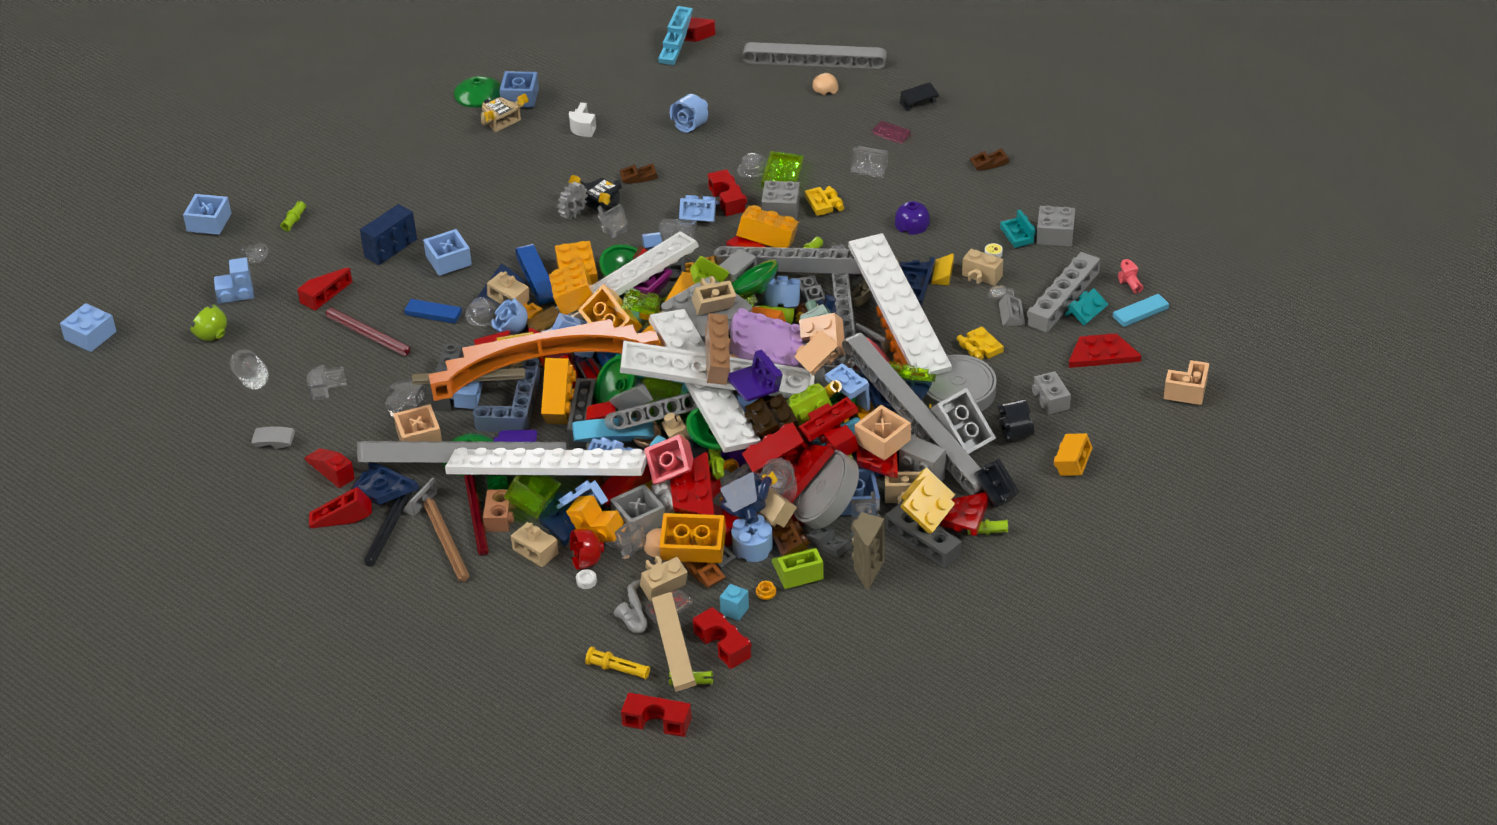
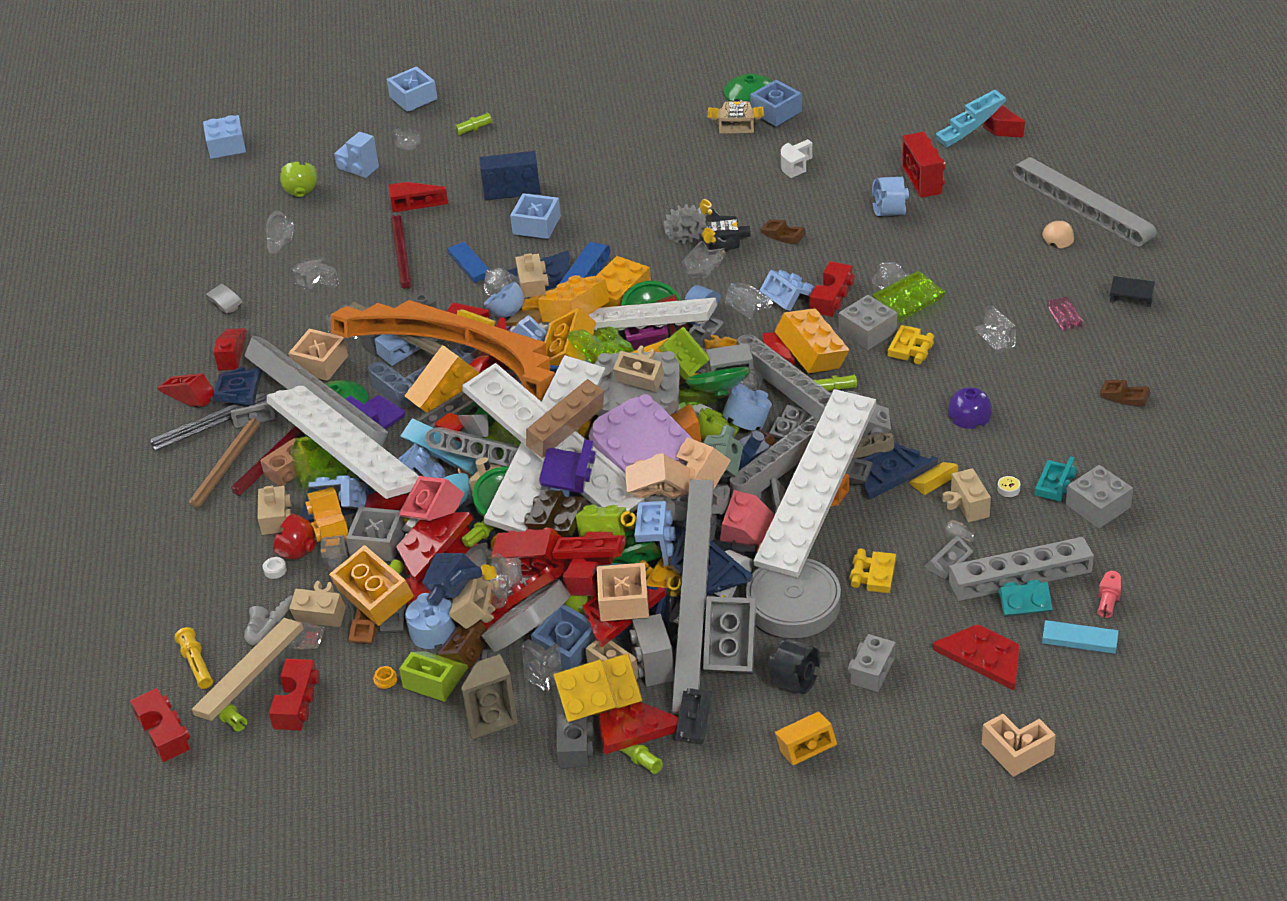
camera: 45 degrees right, 0 degrees up
(682, 78) = (922, 164): none -> red brick
(734, 602) = (342, 669): medium azure brick -> none
(912, 373) = (736, 547): clear neon green plate -> none

